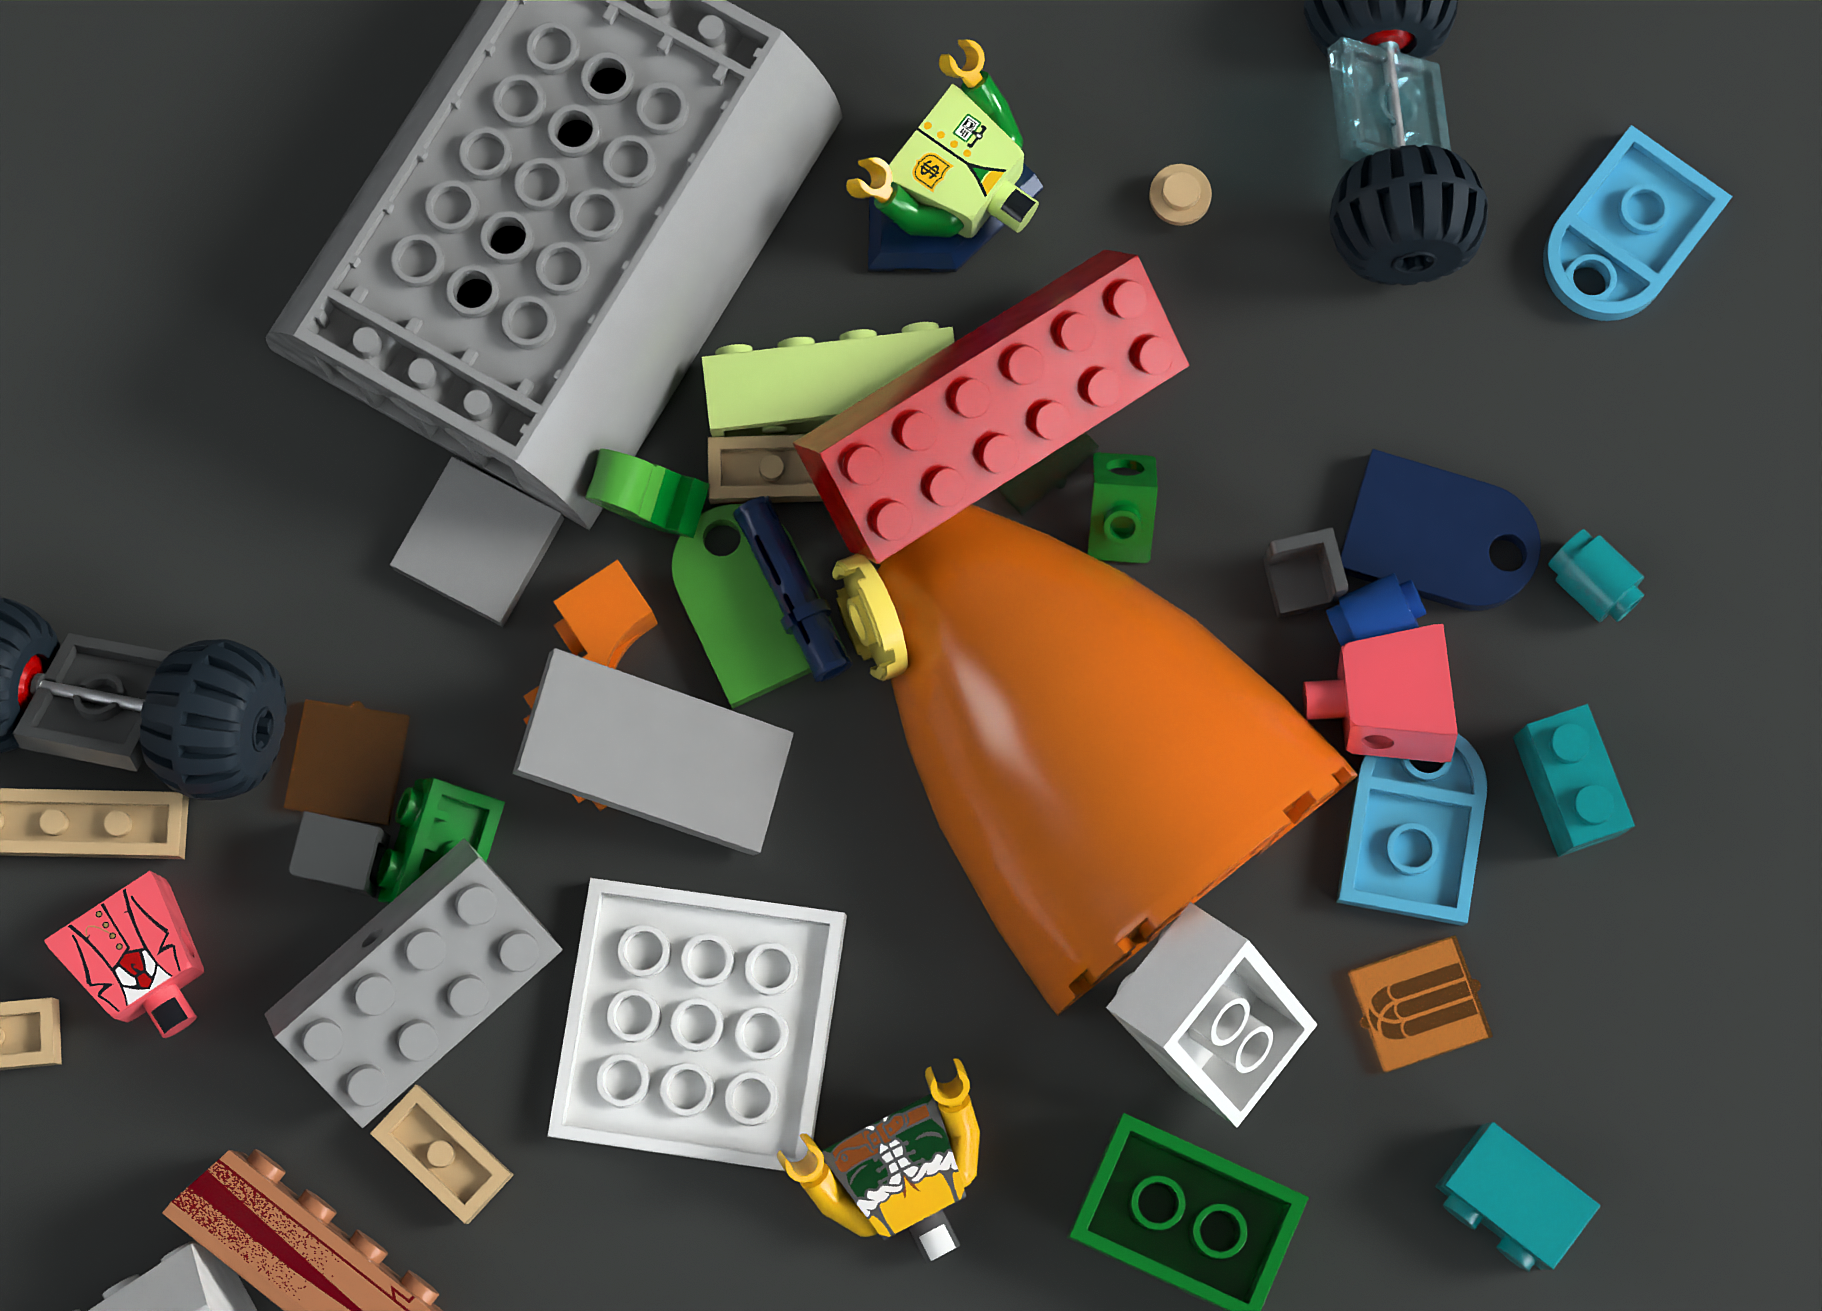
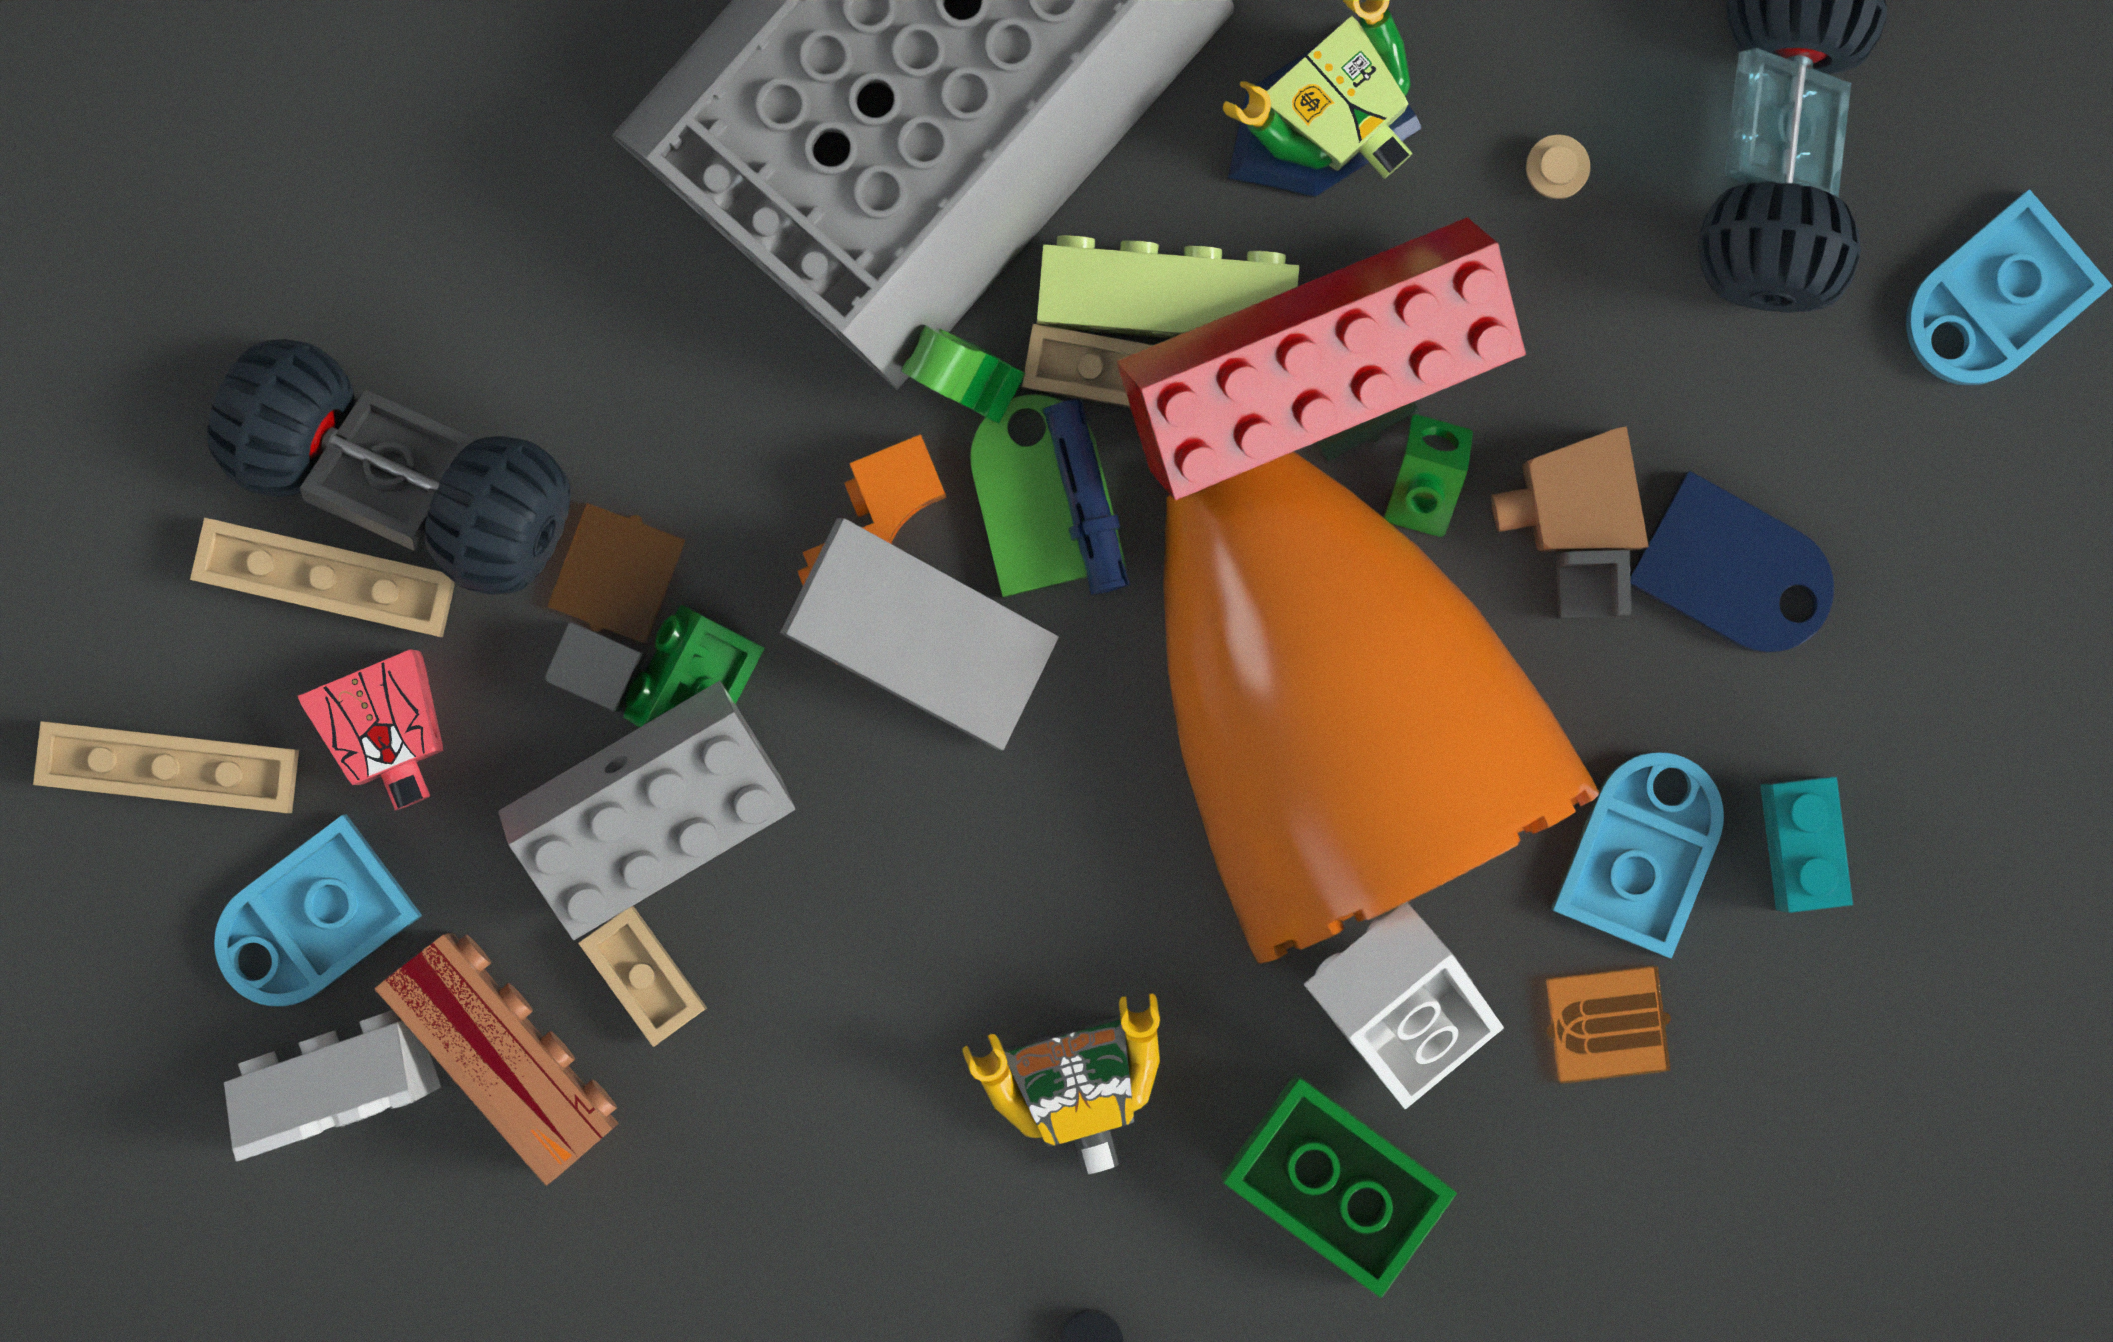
camera: 10 degrees right, 10 degrees up
(100, 1164) = (314, 915): none -> medium azure tile
(477, 541) = (784, 378): light grey tile -> none
(697, 1024) = (910, 902): white plate -> none
(870, 617) = (1157, 543): light yellow tile -> none
(1270, 492) = (1578, 498): none -> medium nougat torso
(1376, 610) = (1654, 641): blue brick -> none
(1391, 696) = (1648, 726): coral torso -> none
(1516, 1198) = (1655, 1228): teal brick -> none
(1597, 576) = (1880, 646): teal brick -> none

